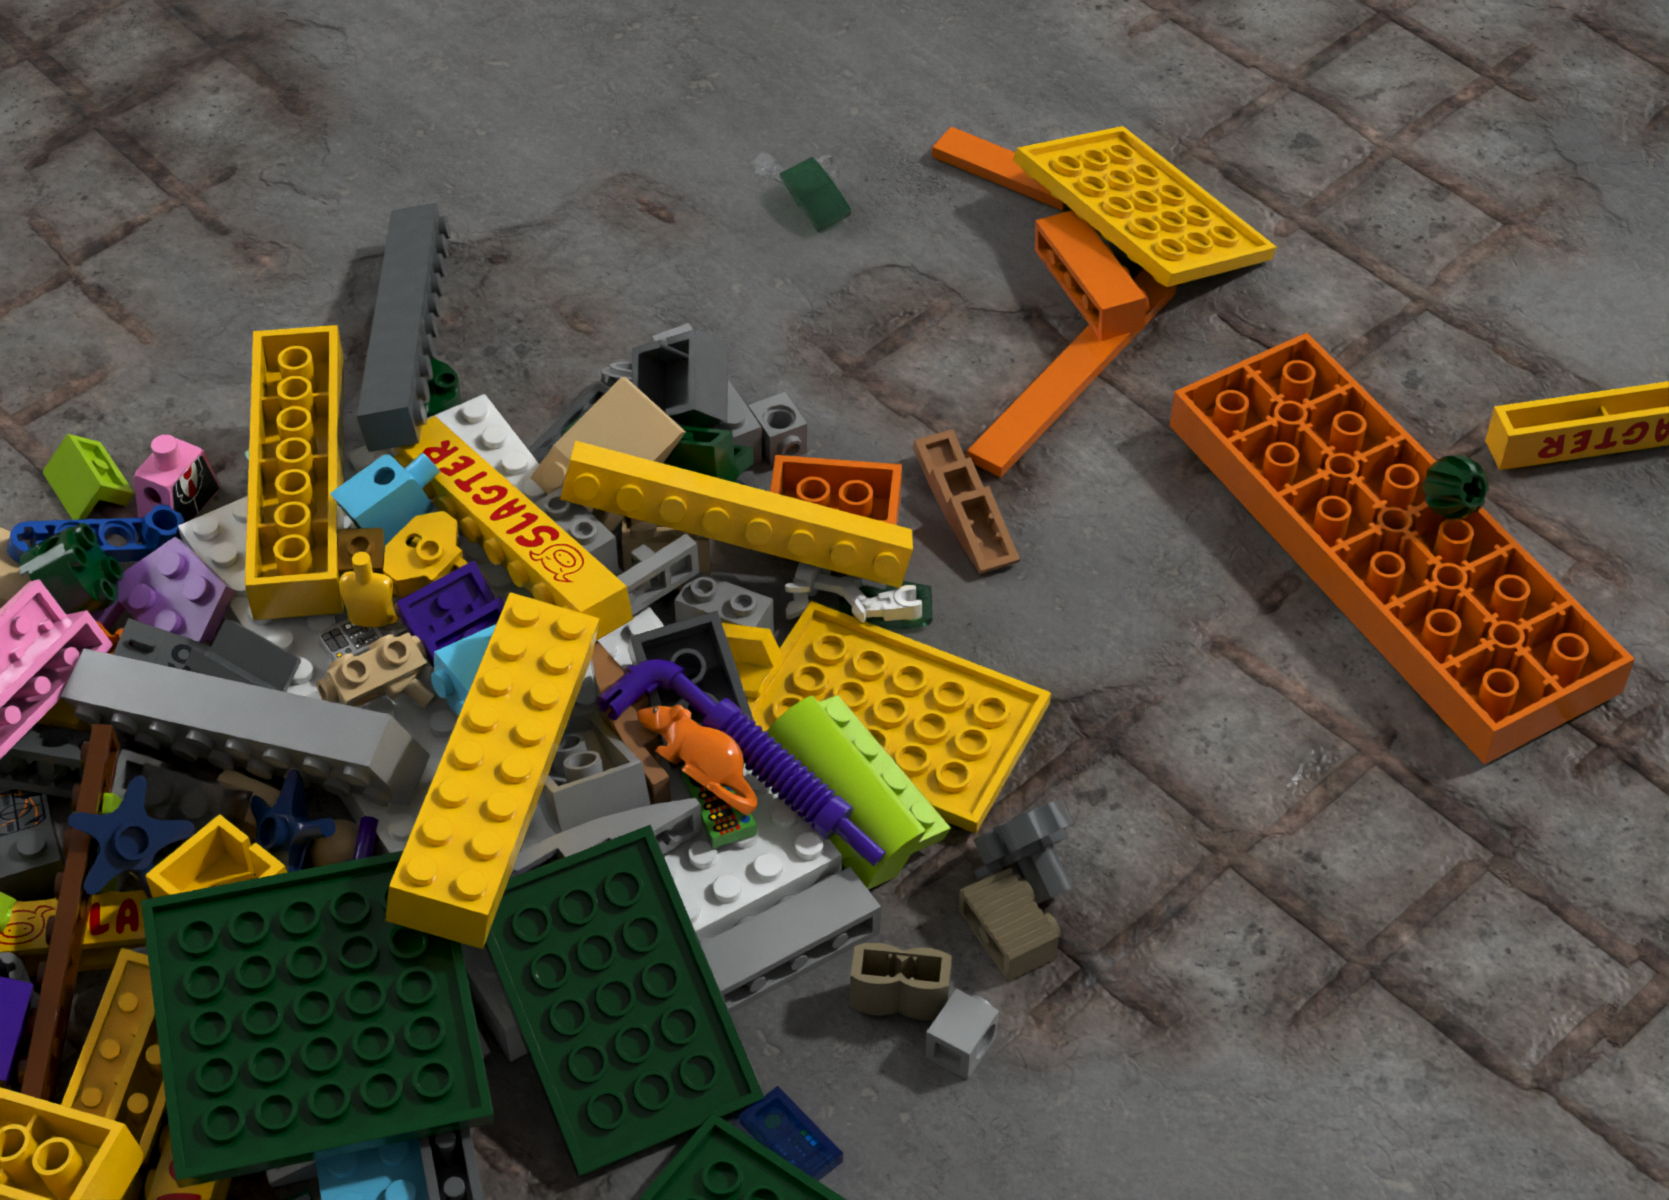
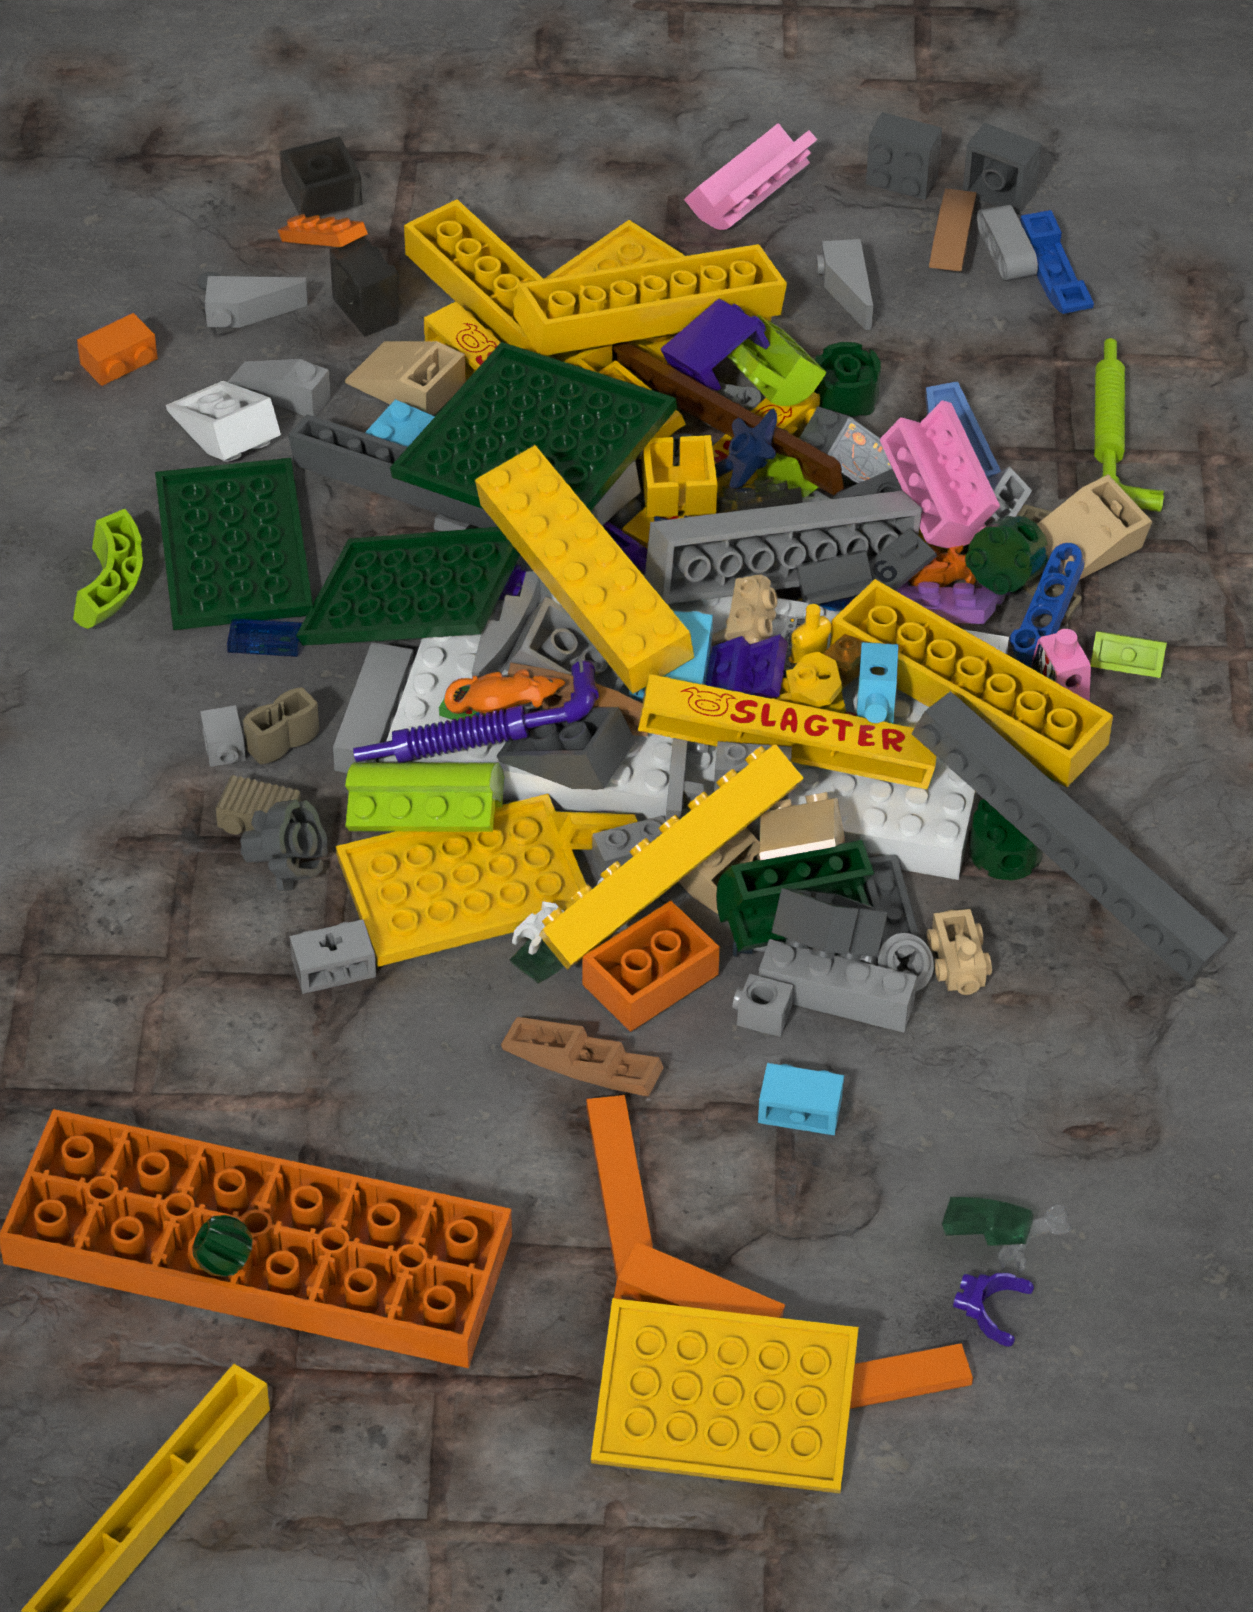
camera: 135 degrees right, 0 degrees up
(580, 355) = (959, 951): none -> tan brick
(839, 349) = (800, 1098): none -> medium azure brick
(878, 163) = (978, 1289): none -> dark purple helmet
(1087, 727) = (332, 956): none -> light grey brick

